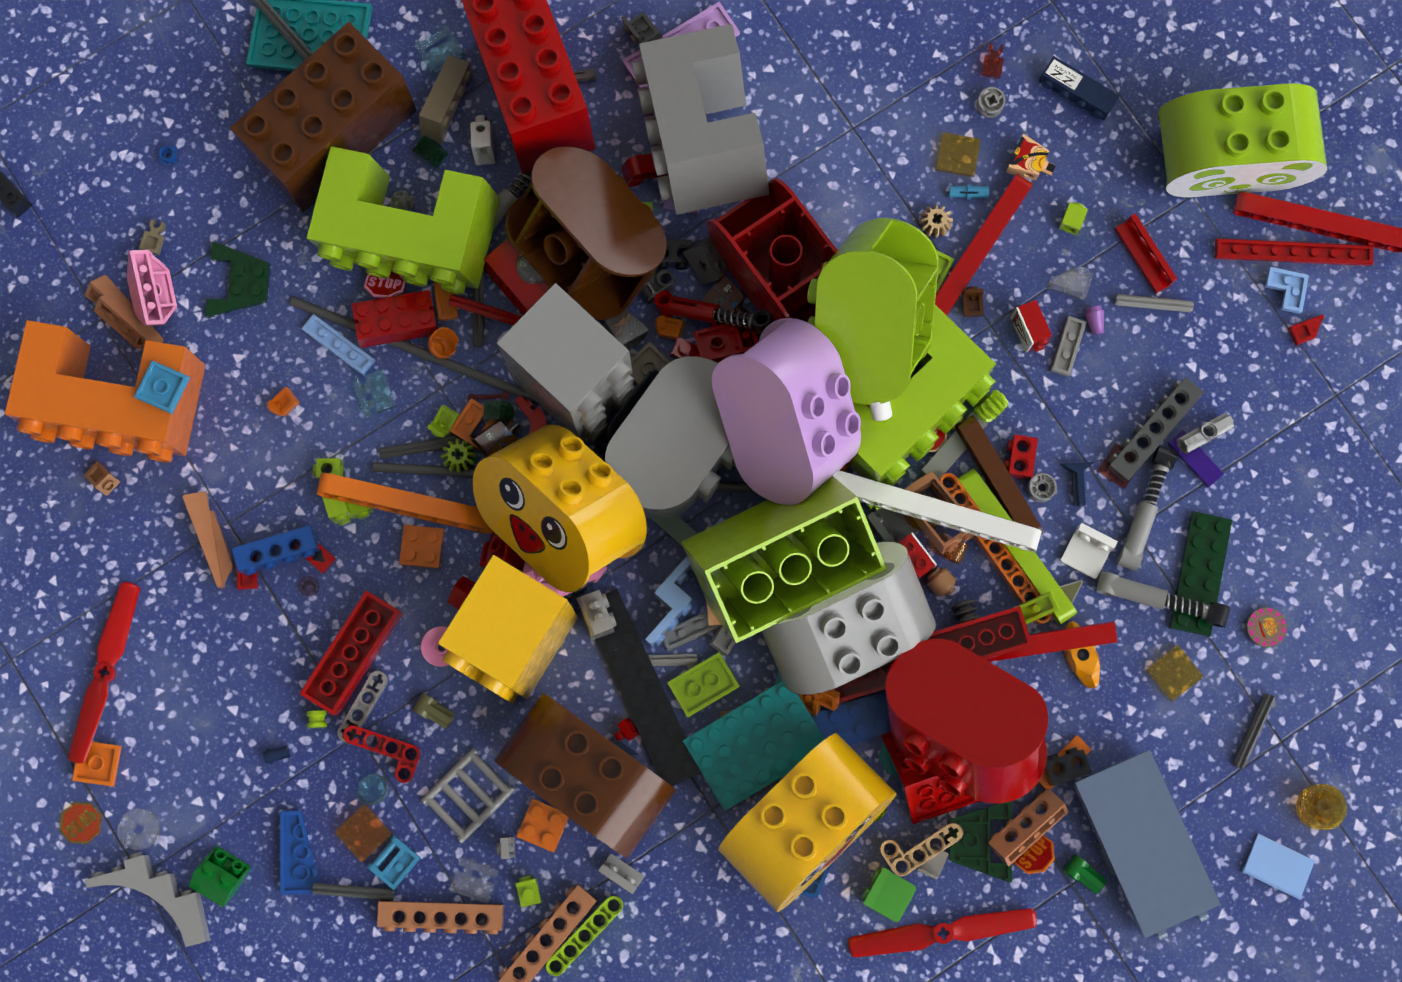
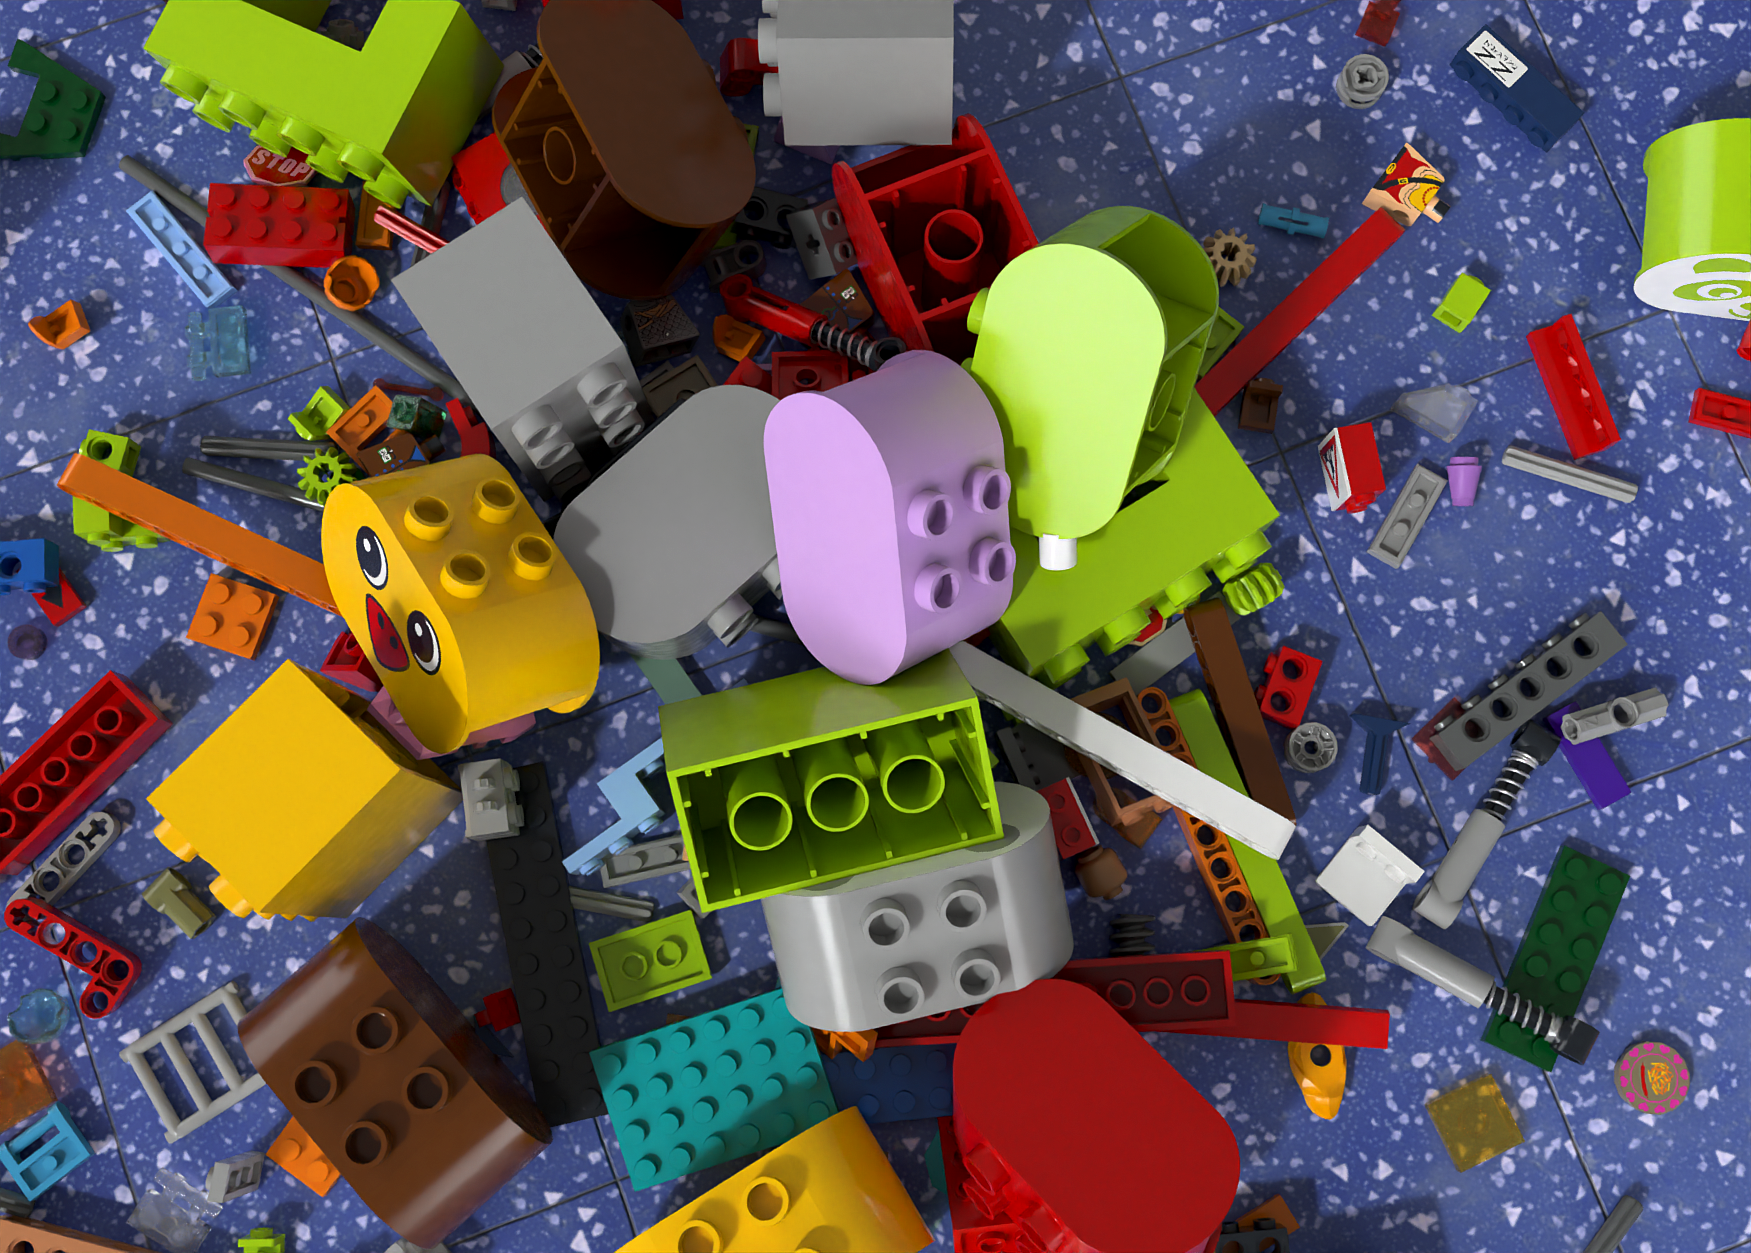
camera: 10 degrees right, 0 degrees up
(958, 154) = (1288, 157): clear yellow tile -> none

